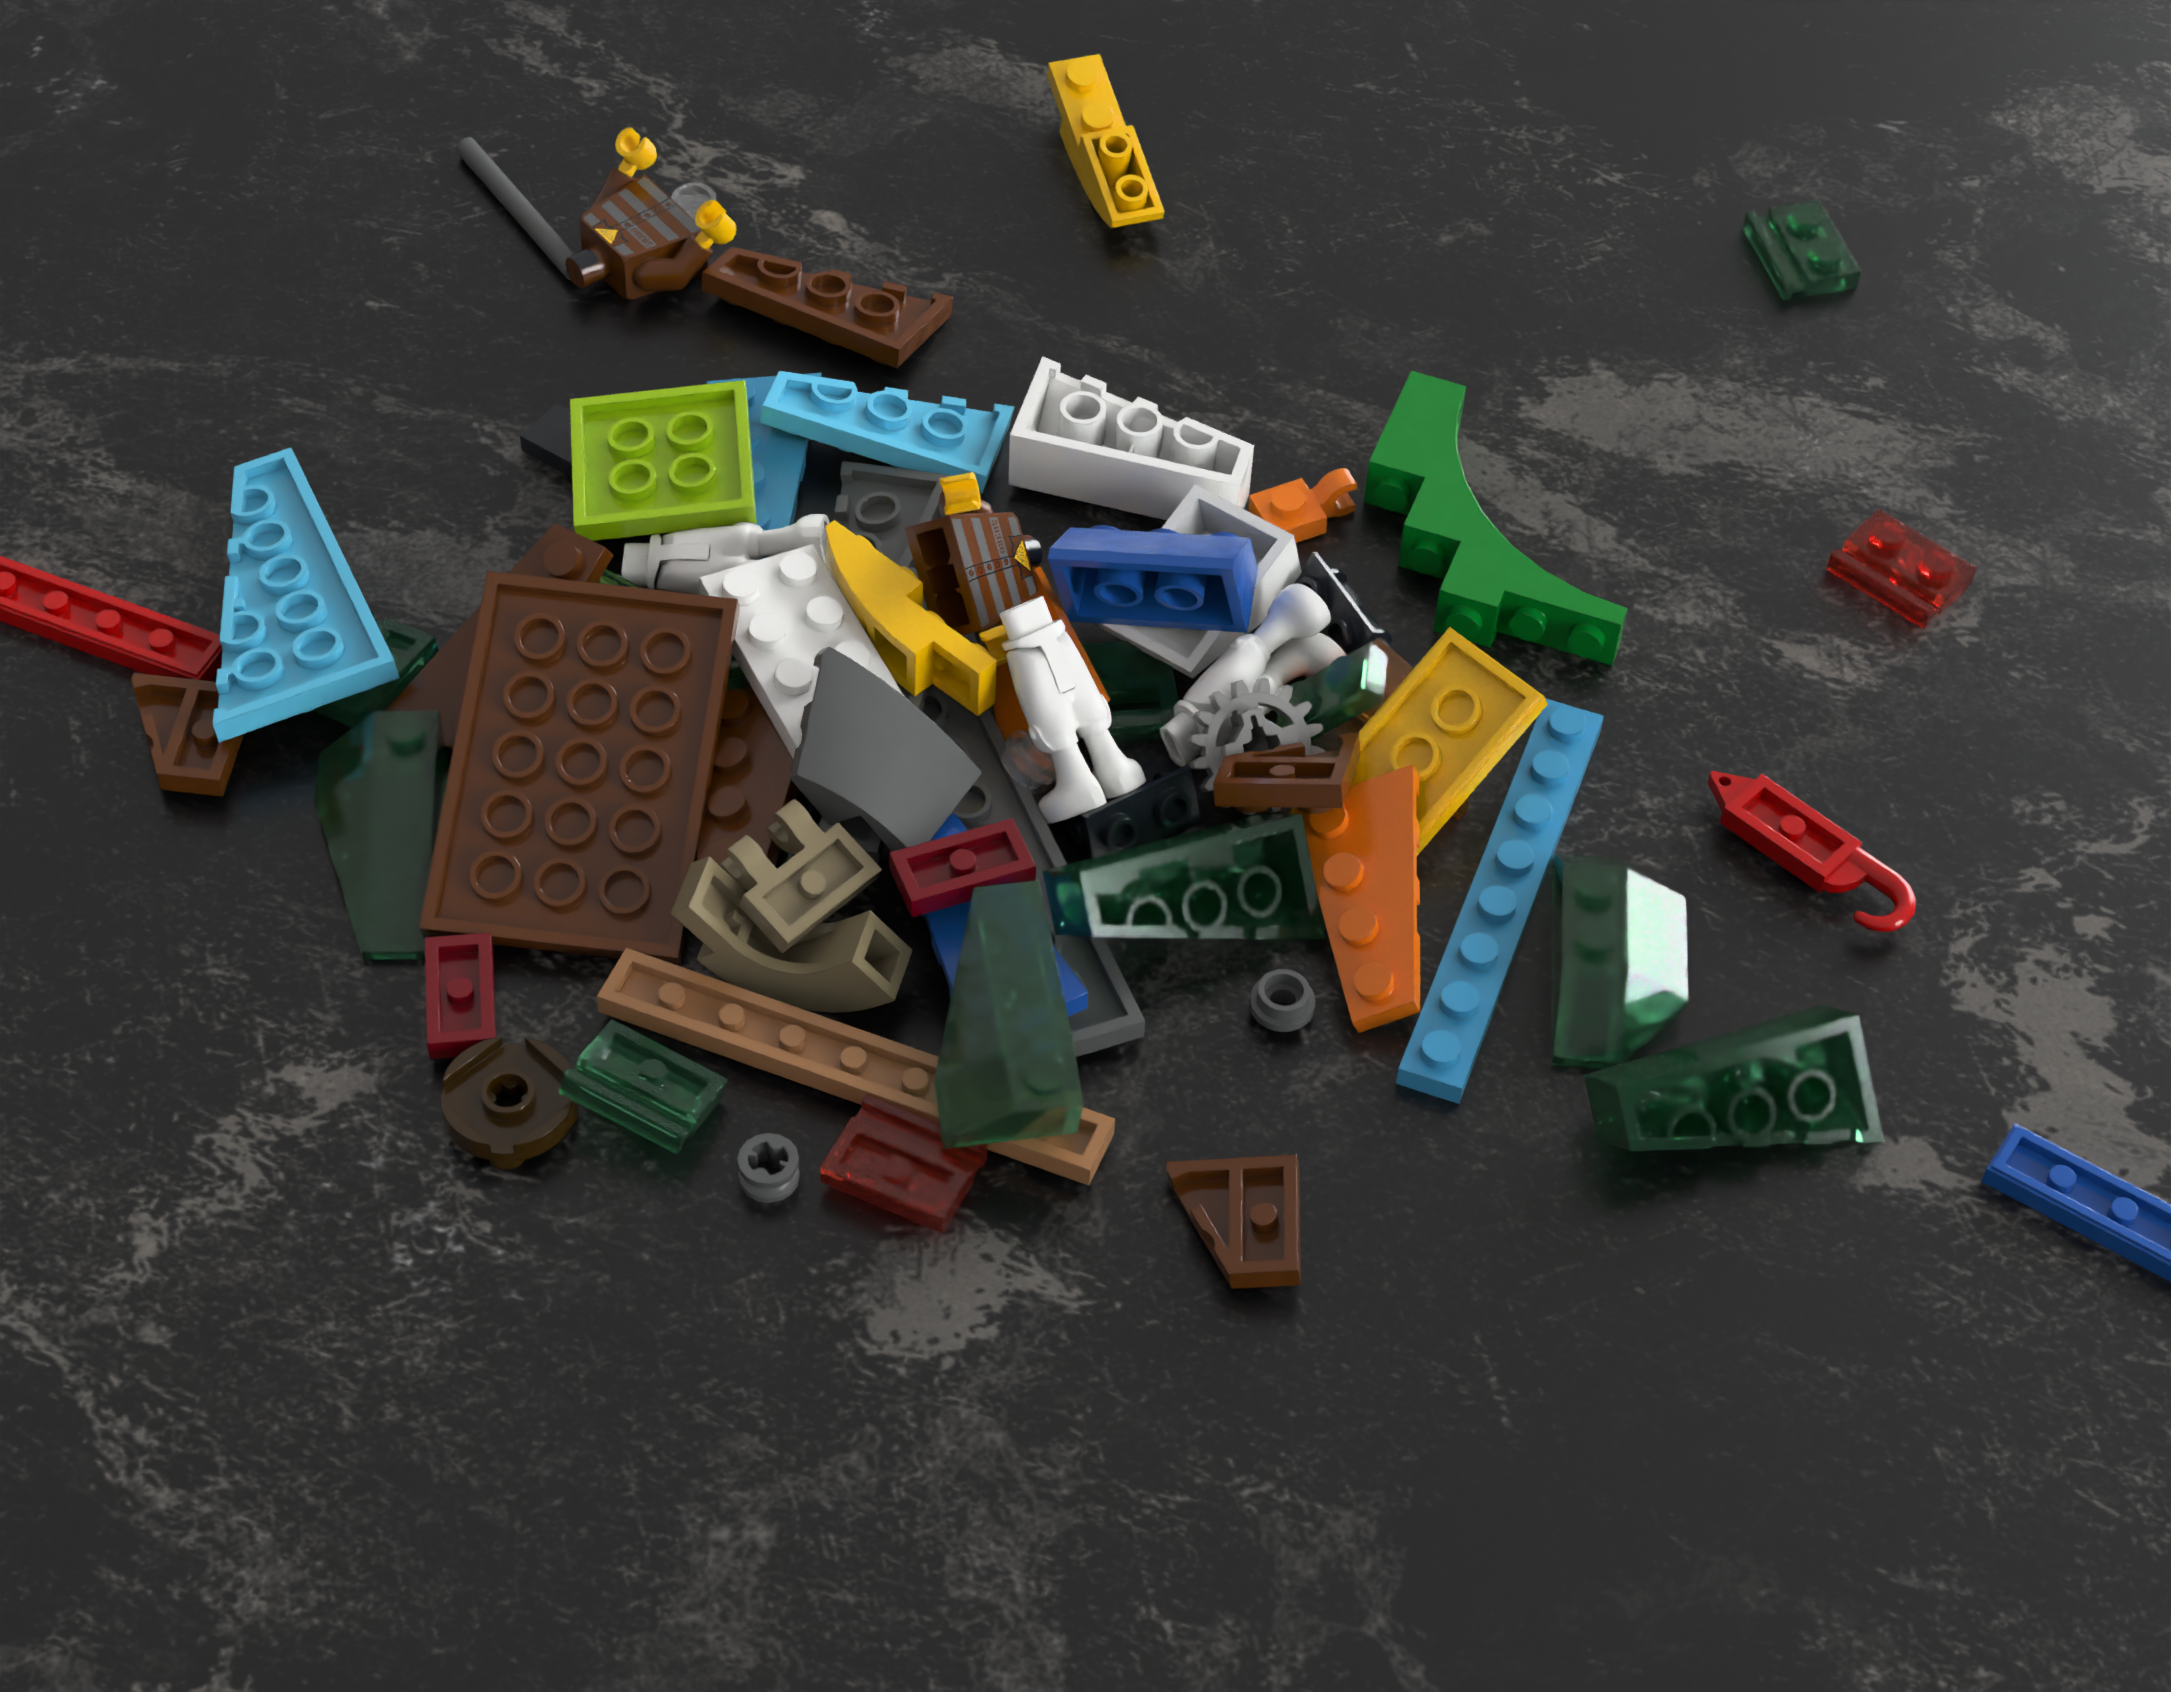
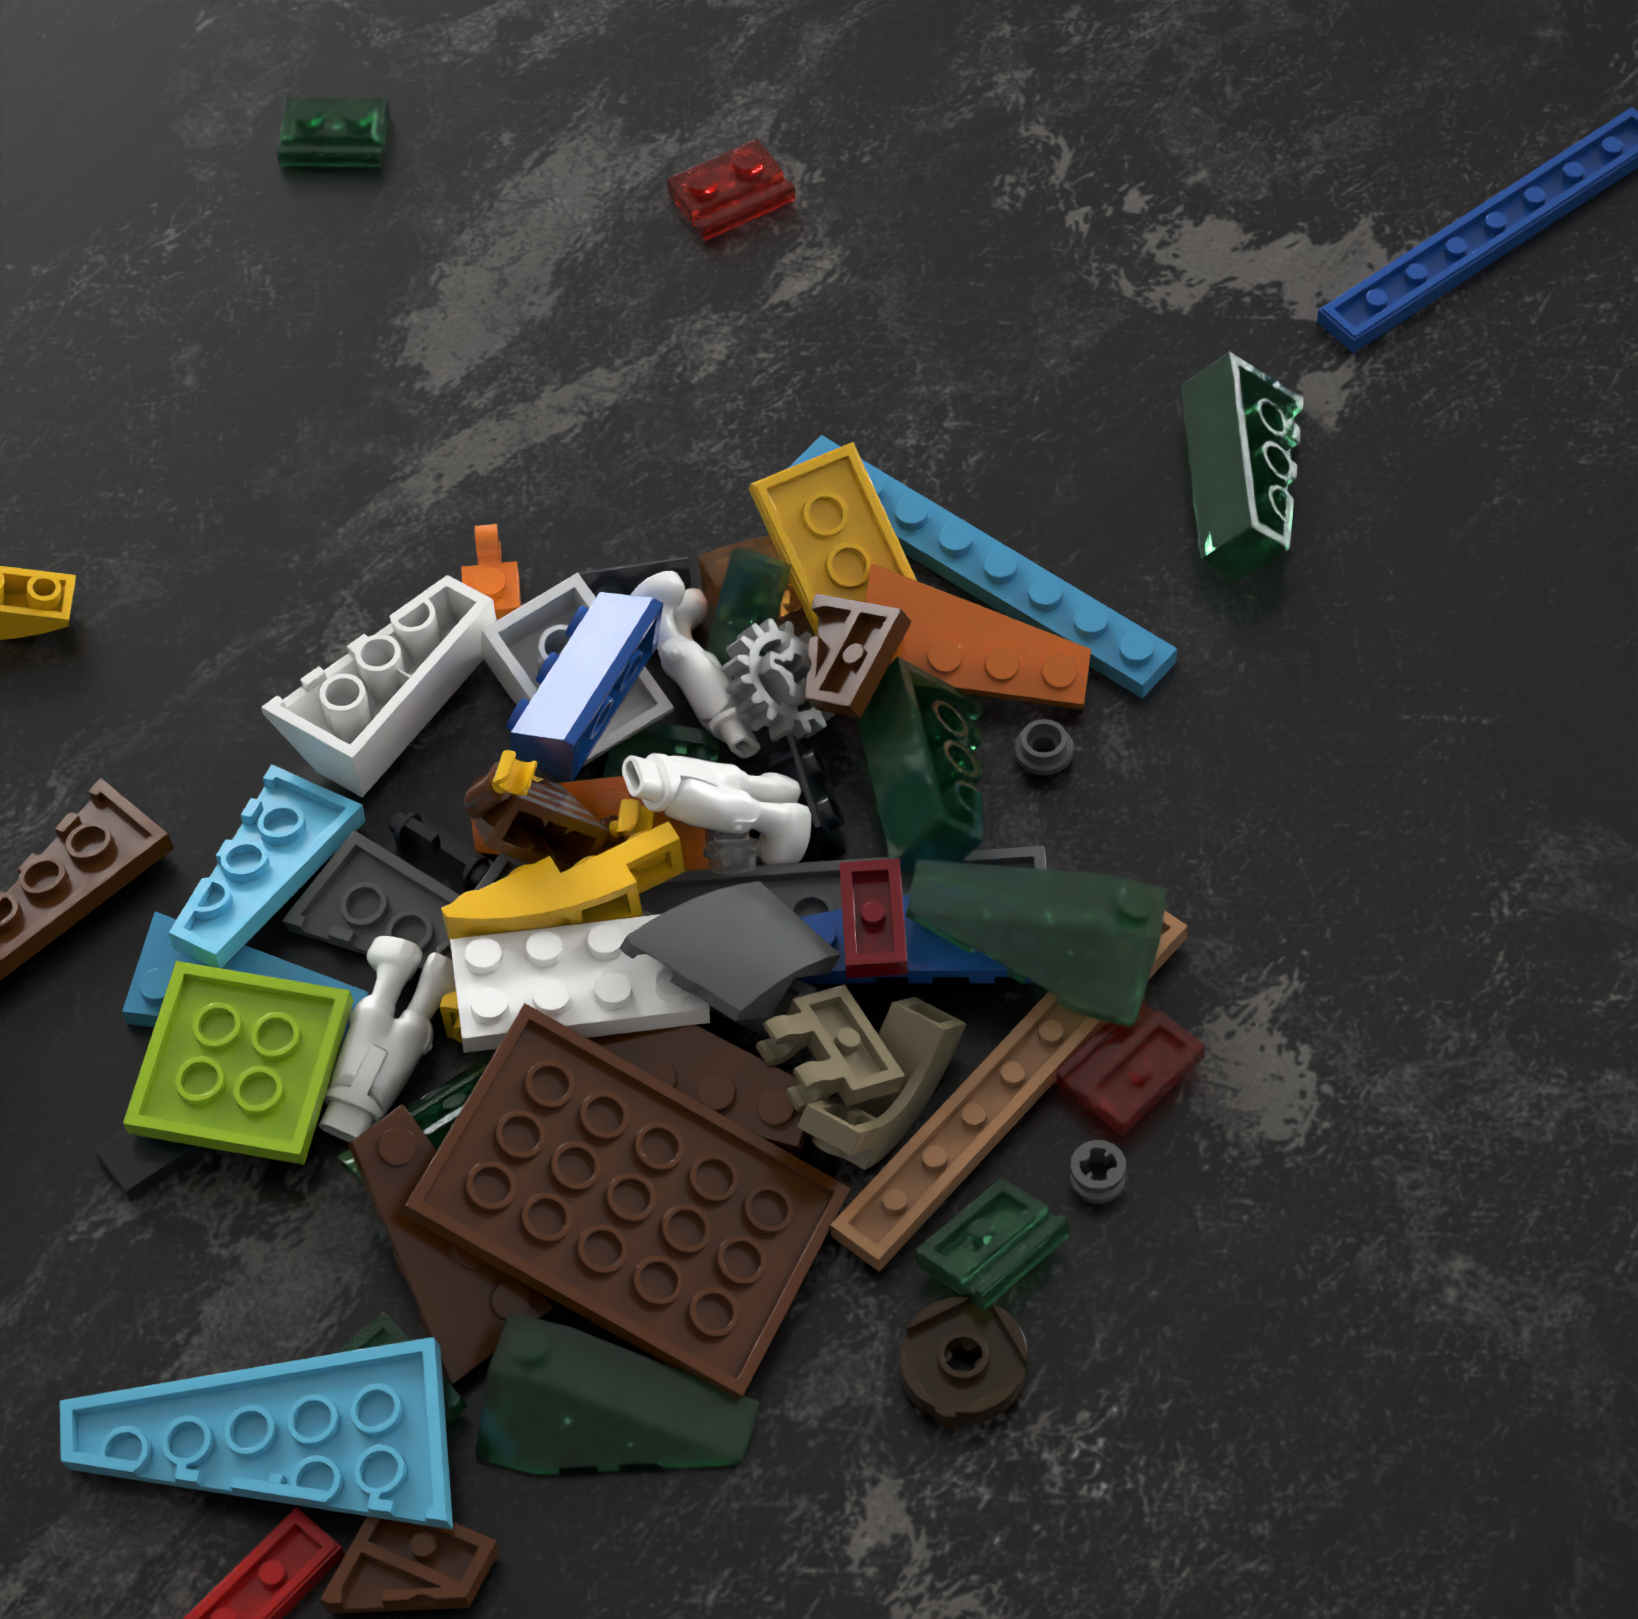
camera: 65 degrees left, 5 degrees up
(459, 993) = (830, 1377): dark red plate -> none
(1245, 1215) = (1258, 832): reddish brown wing -> none
(1448, 536) = (571, 480): green arch -> none
(1613, 960) = (1072, 510): clear green wedge -> none
(1808, 844) = (1005, 345): red plate -> none

